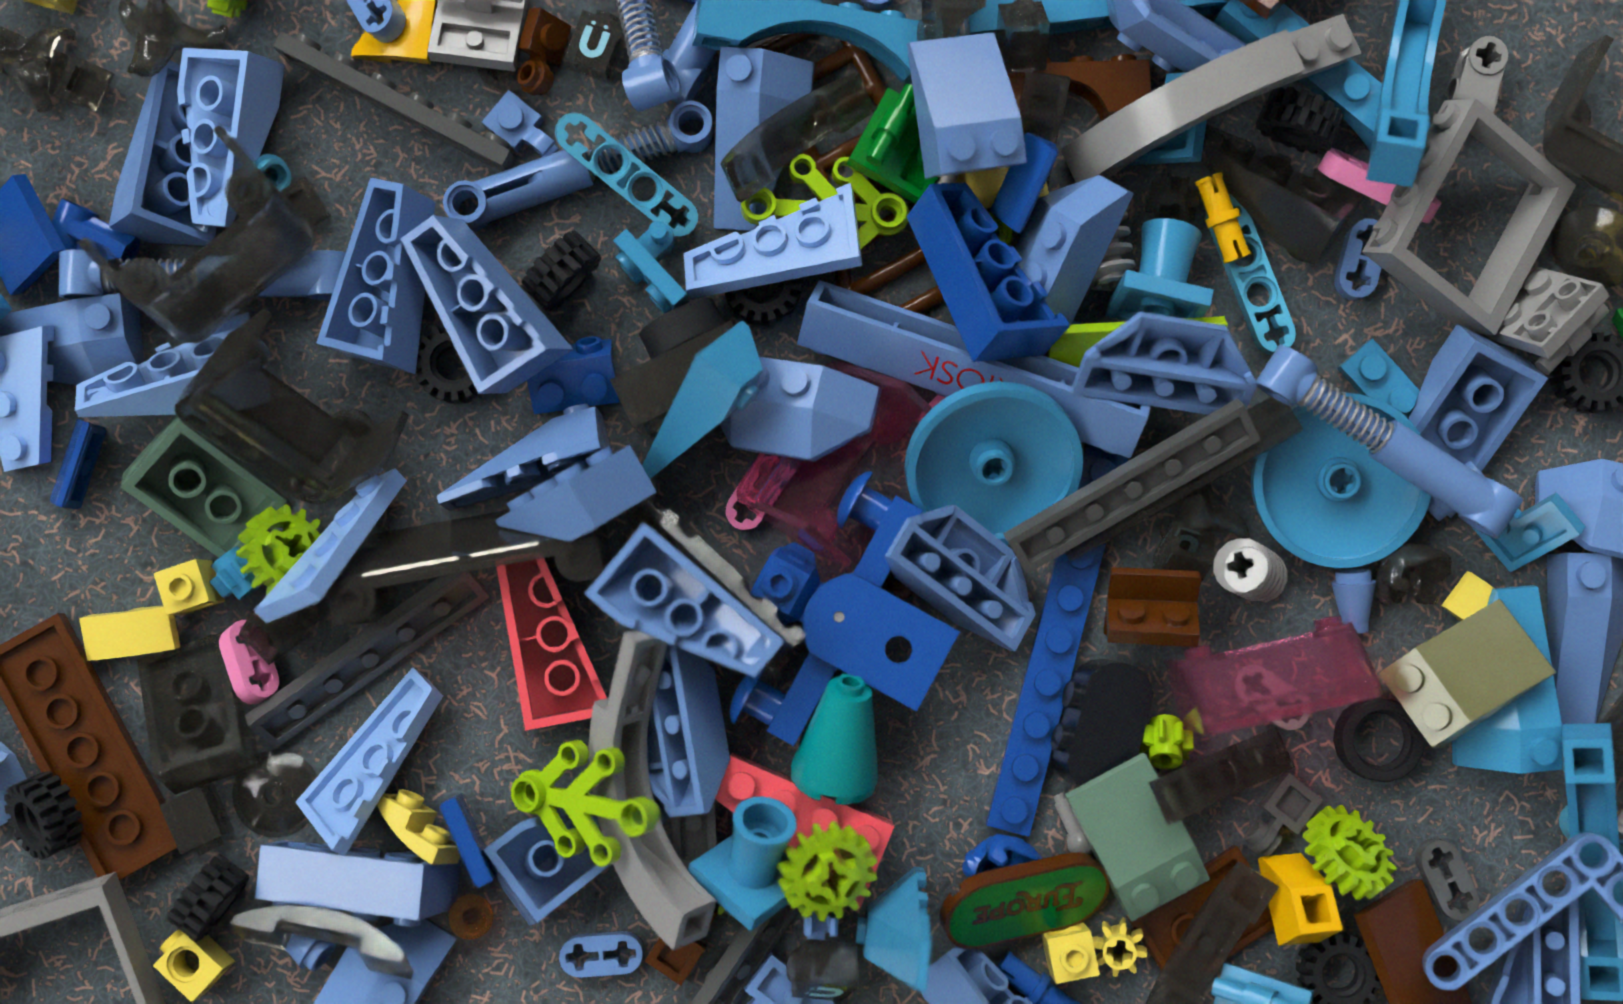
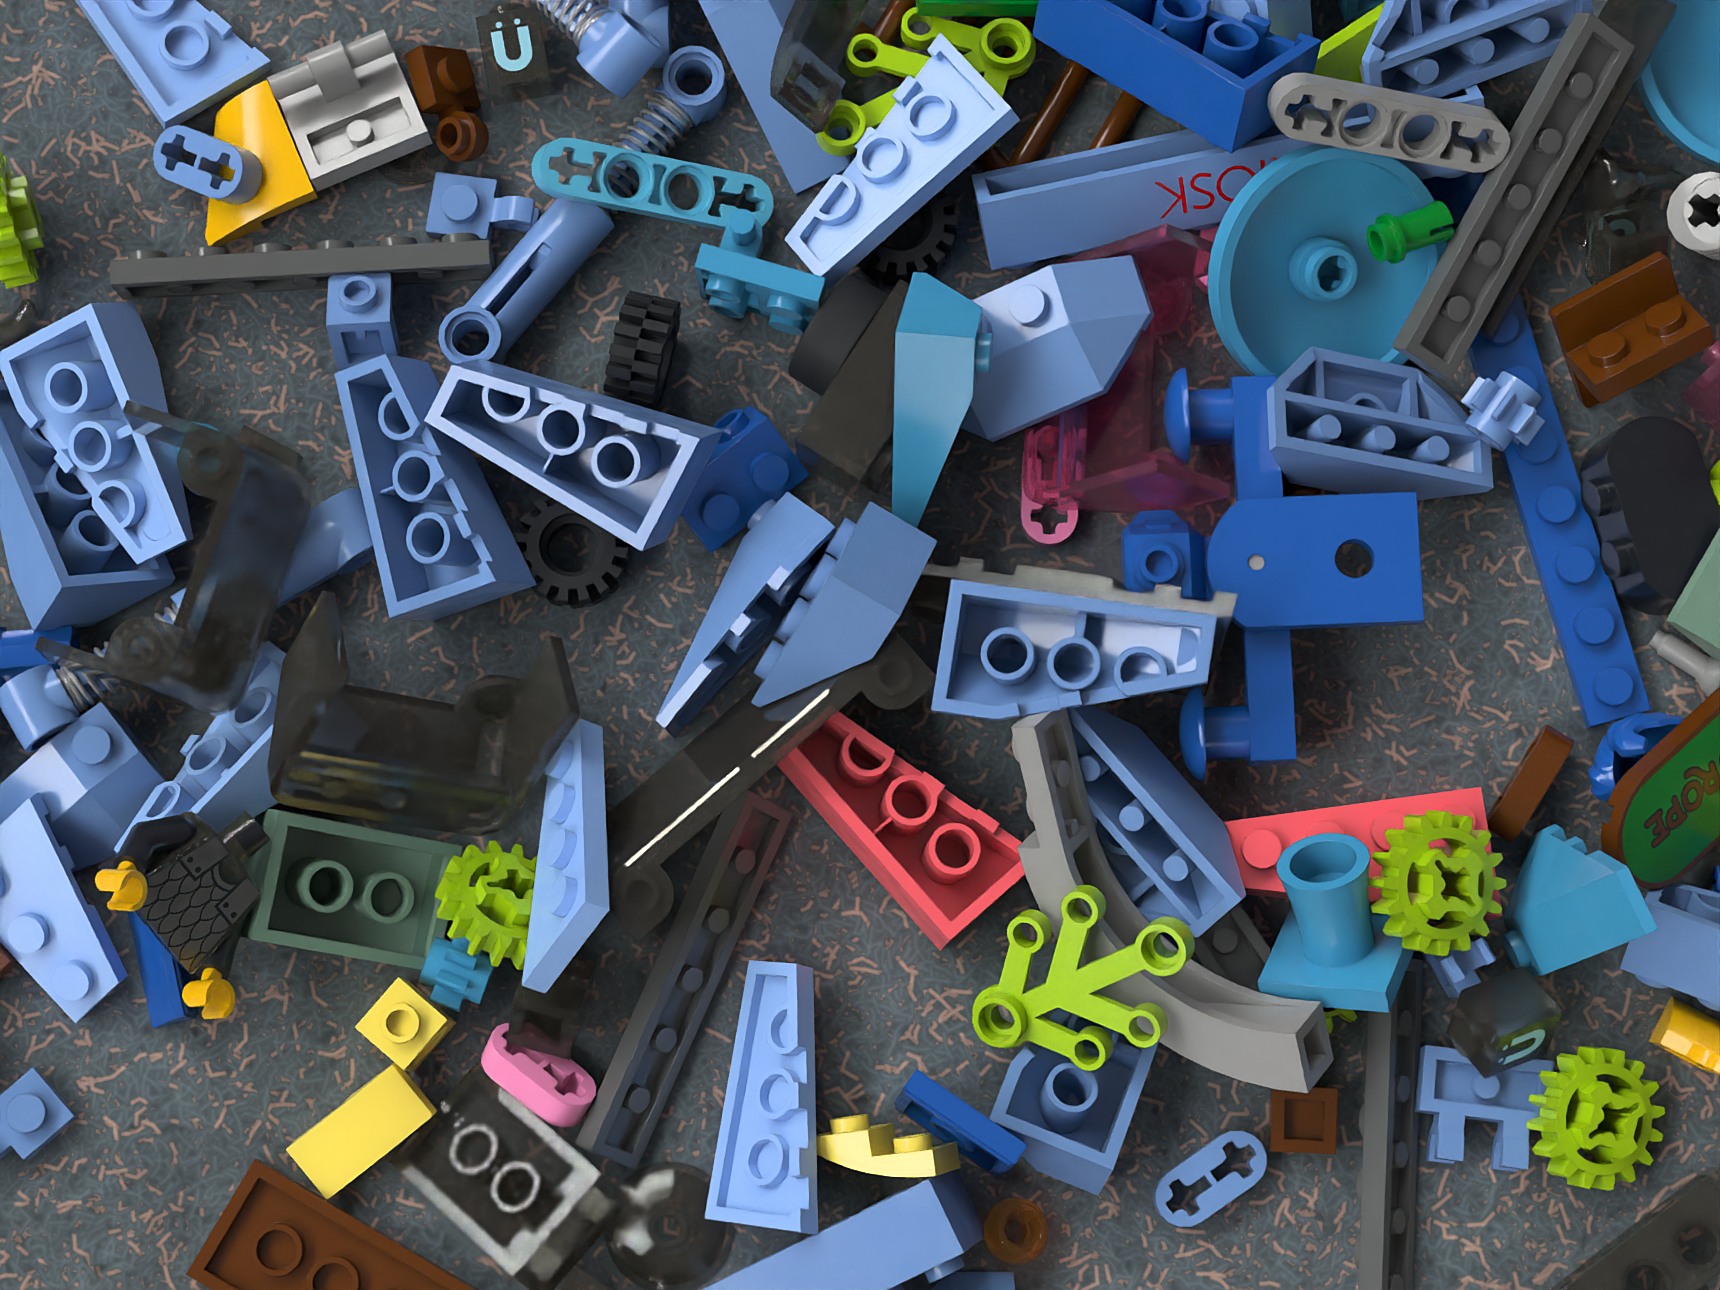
camera: 25 degrees left, 5 degrees down
(95, 440) = (190, 895): none -> torso
(408, 154) = (361, 318): none -> medium blue bracket
(839, 745) = (1350, 723): teal cone -> none
(929, 837) = (1529, 783): none -> reddish brown beam
(1046, 611) = (1503, 411): none -> medium blue gear
(1054, 471) = (1396, 236): none -> green pin
(1073, 405) = (1386, 130): none -> light grey beam

